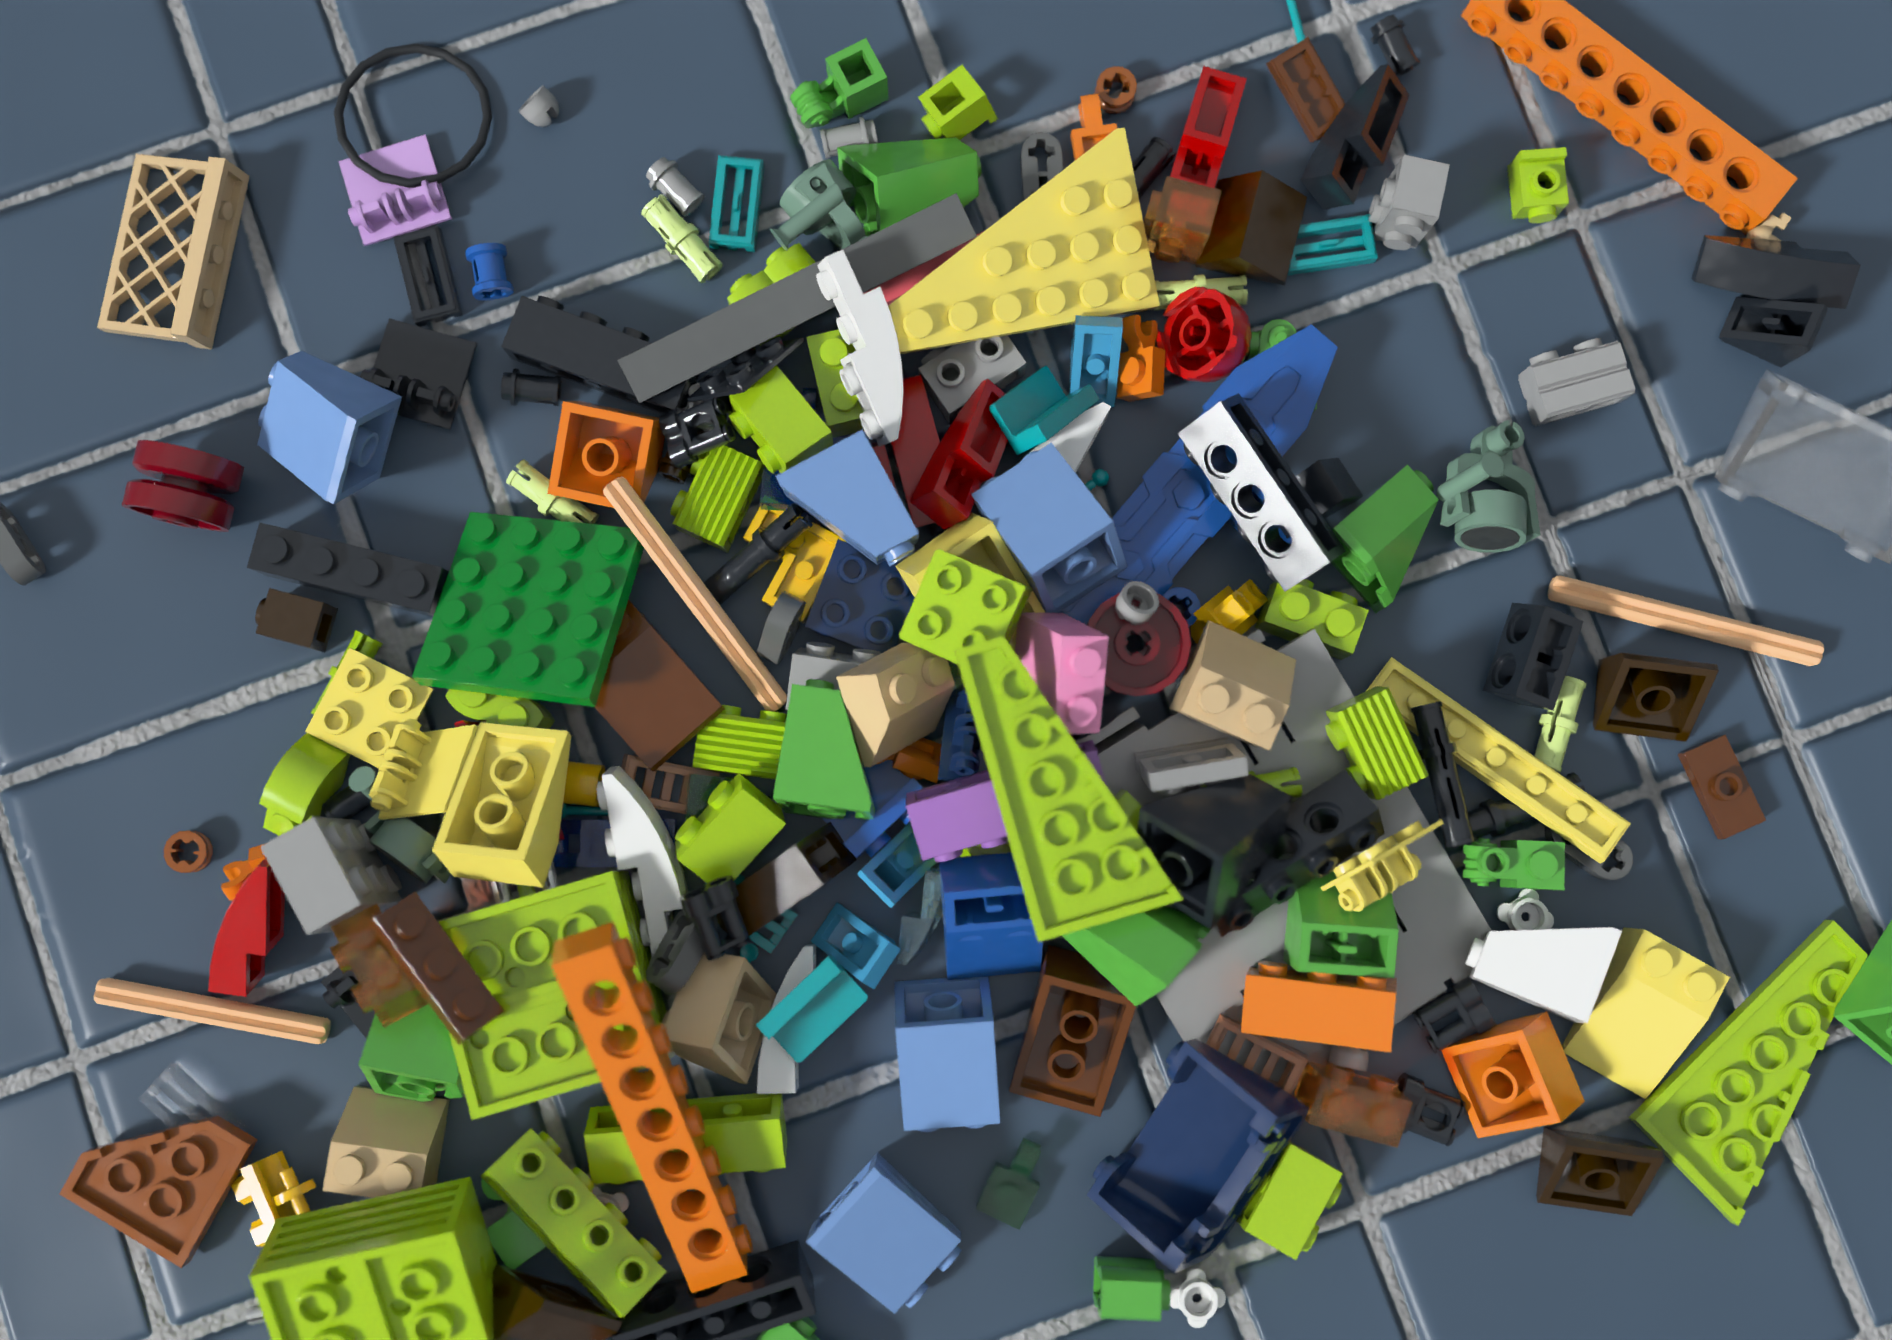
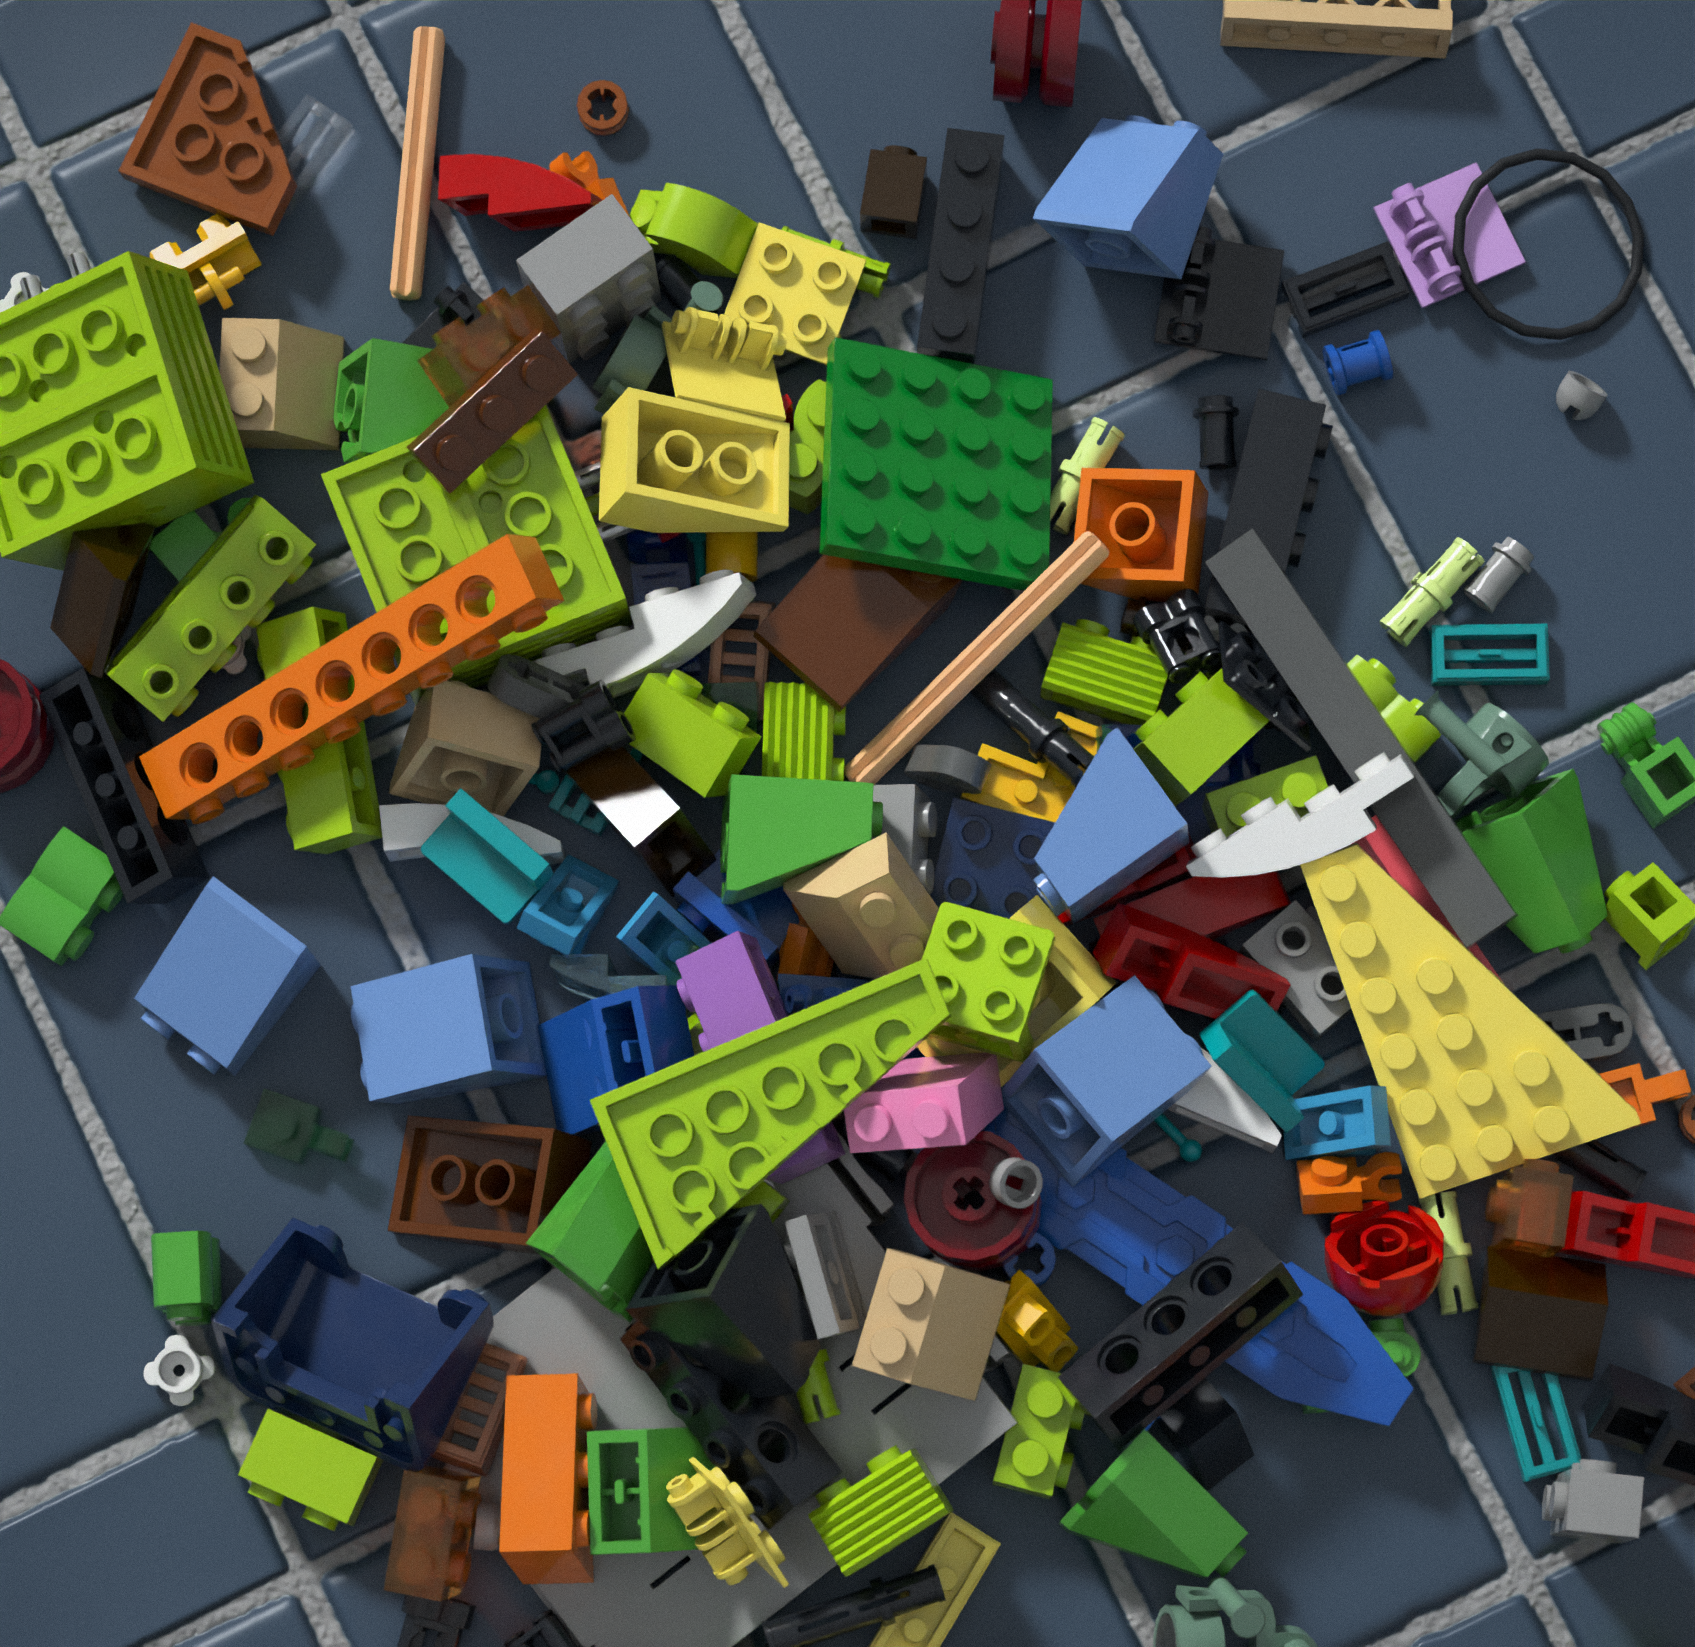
camera: 90 degrees right, 5 degrees down
(851, 134) = (1596, 790): light grey pin -> none

